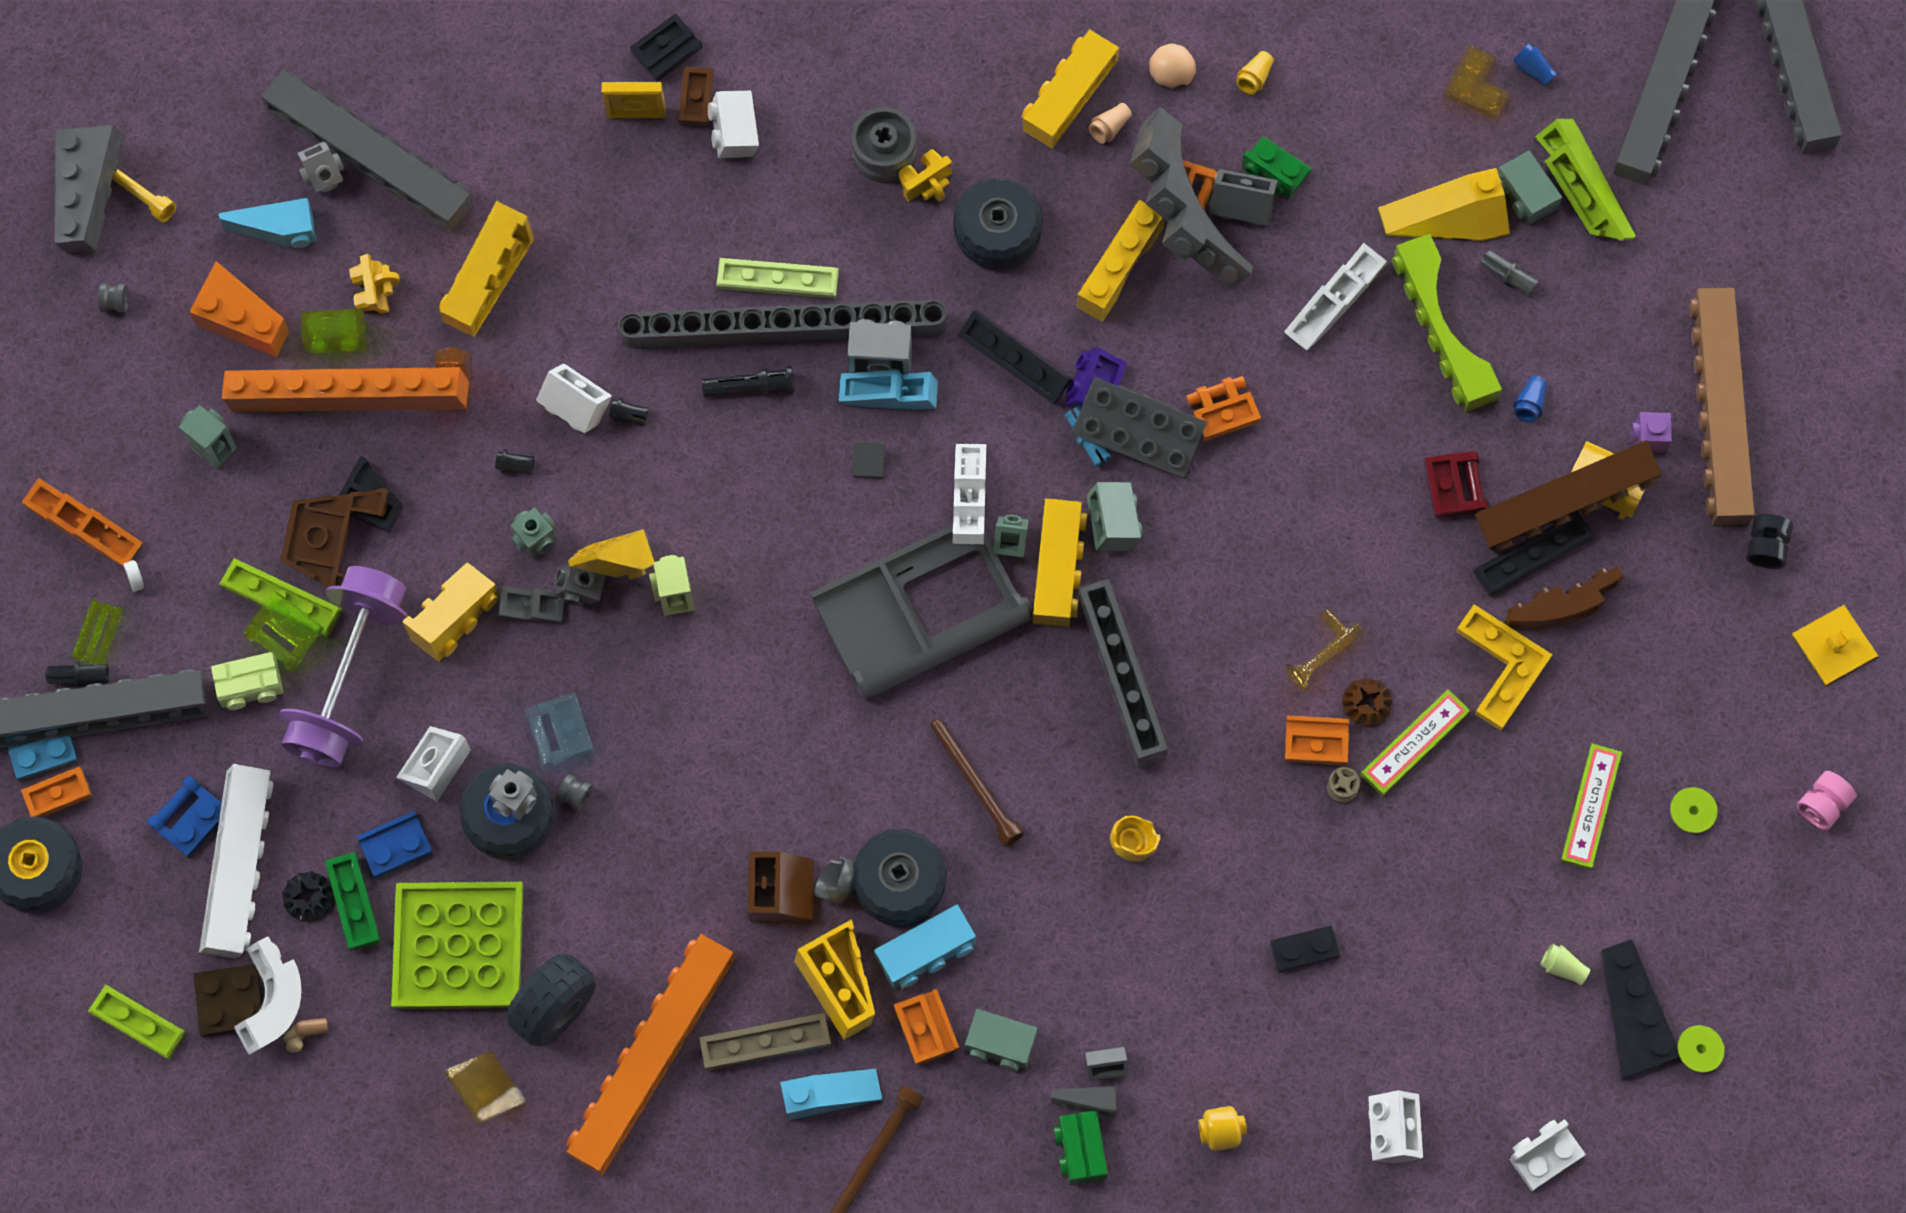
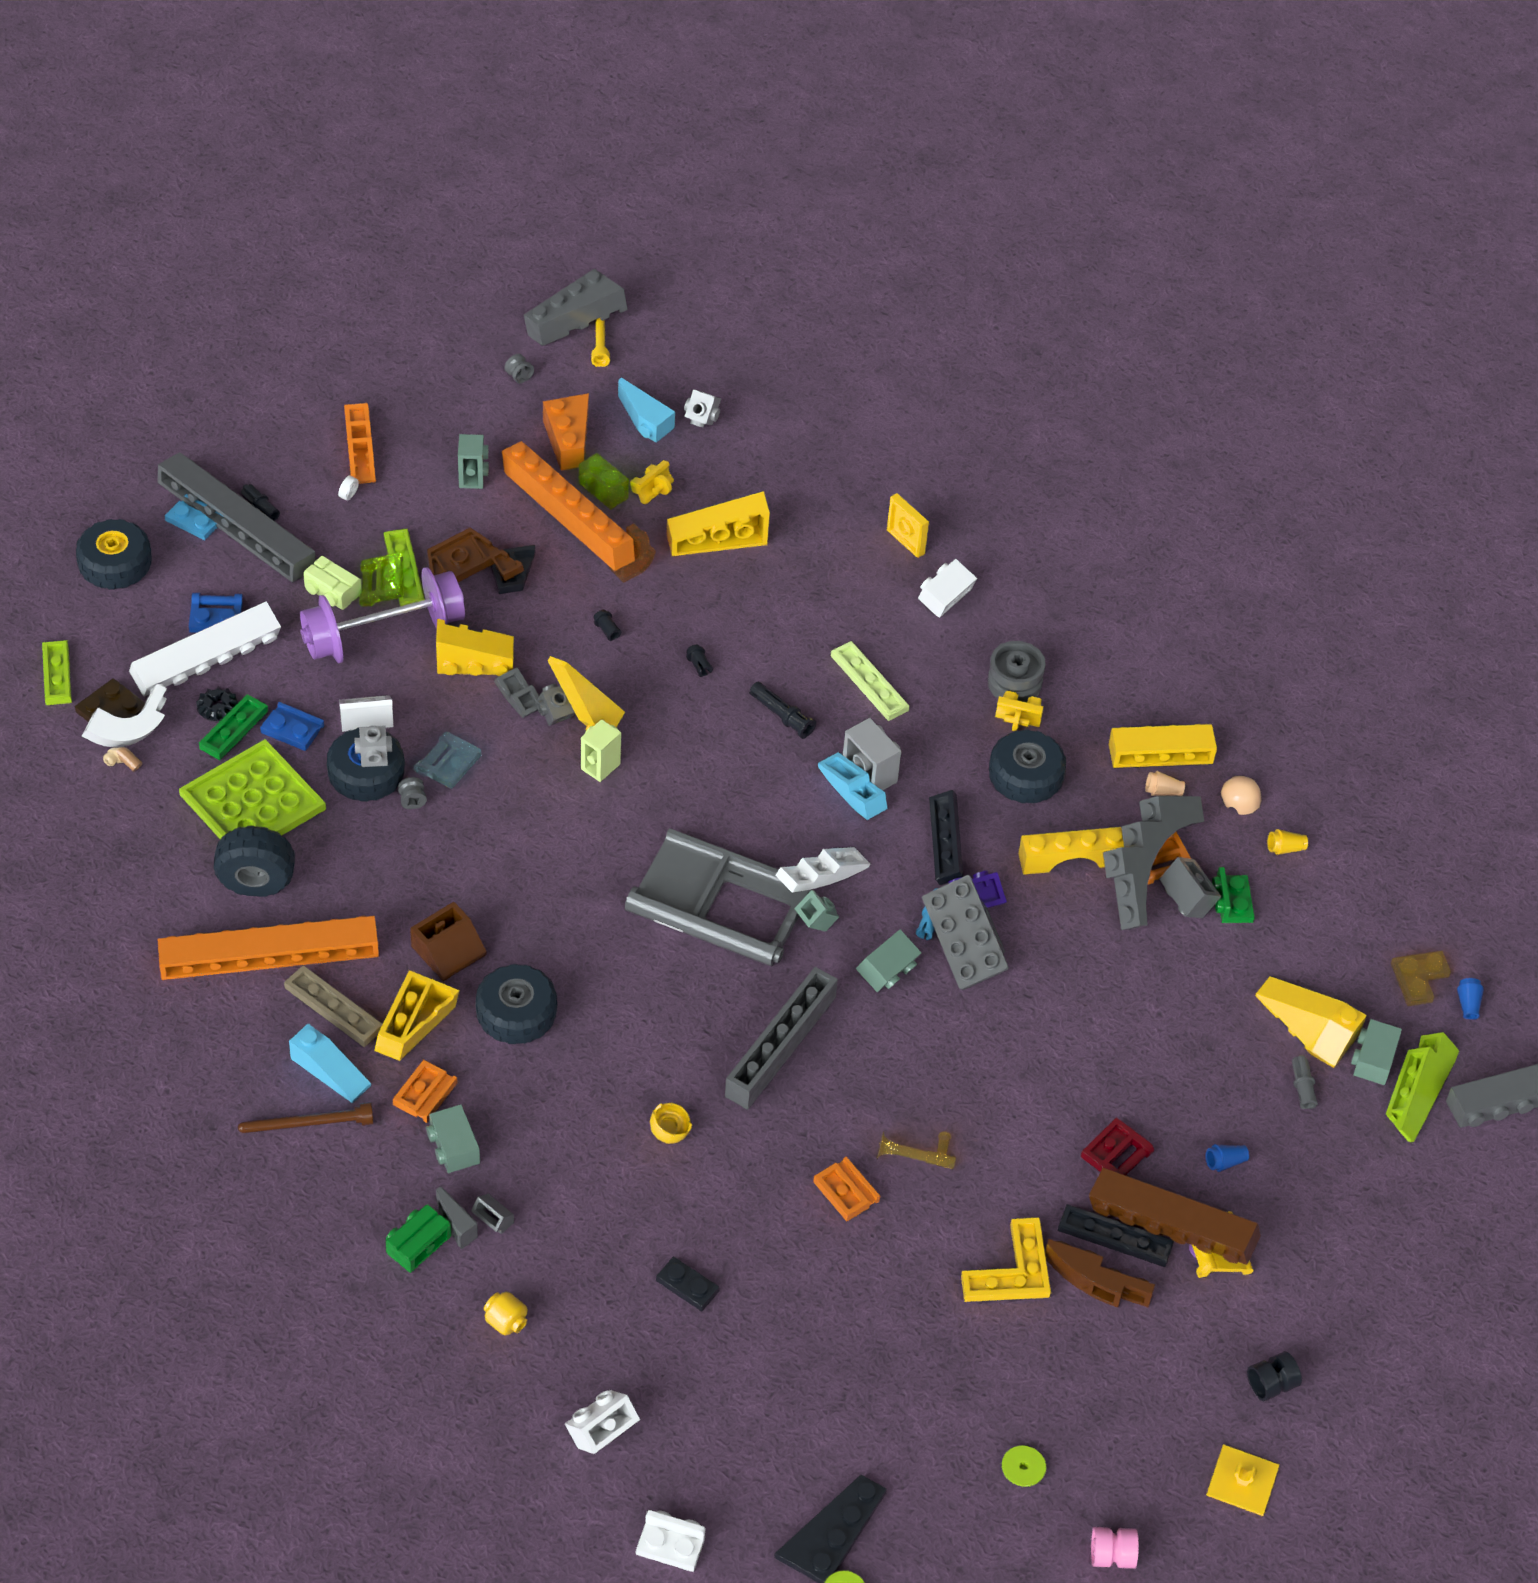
camera: 45 degrees right, 20 degrees down
(57, 793) = (172, 539): orange plate -> none
(86, 628) = (294, 494): clear neon green tile -> none
(367, 150) = (737, 424): dark grey brick -> none
(484, 1087) = (166, 870): clear yellow piece -> none
(531, 540) = (570, 653): sand green brick -> none
(573, 398) = (678, 623): white brick -> none
(666, 47) = (963, 525): black plate -> none
(696, 96) = (946, 555): reddish brown plate -> none
(768, 318) = (835, 694): dark grey beam -> none
(836, 881) = (474, 974): dark grey hair -> none
(868, 459) = (795, 805): dark grey slope -> none
(926, 947) = (481, 1052): medium azure brick -> none
(1007, 830) = (609, 1048): reddish brown piece -> none
(1057, 563) = (827, 951): yellow brick -> none
(1227, 415) = (1028, 983): orange plate -> none
(1336, 297) = (1183, 992): white slope -> none
(1345, 779) = (827, 1219): dark tan wheel -> none
(1364, 714) = (915, 1209): reddish brown gear -> none
(1415, 742) = (904, 1253): tile -> none
(1471, 376) = (1250, 1028): lime arch -> none
(1563, 964) = (825, 1453): yellowish green cone -> none
(1591, 807) = (962, 1397): tile -> none
(1654, 429) = (1278, 1245): medium lavender brick -> none
(1722, 407) = (1344, 1279): medium nougat brick -> none

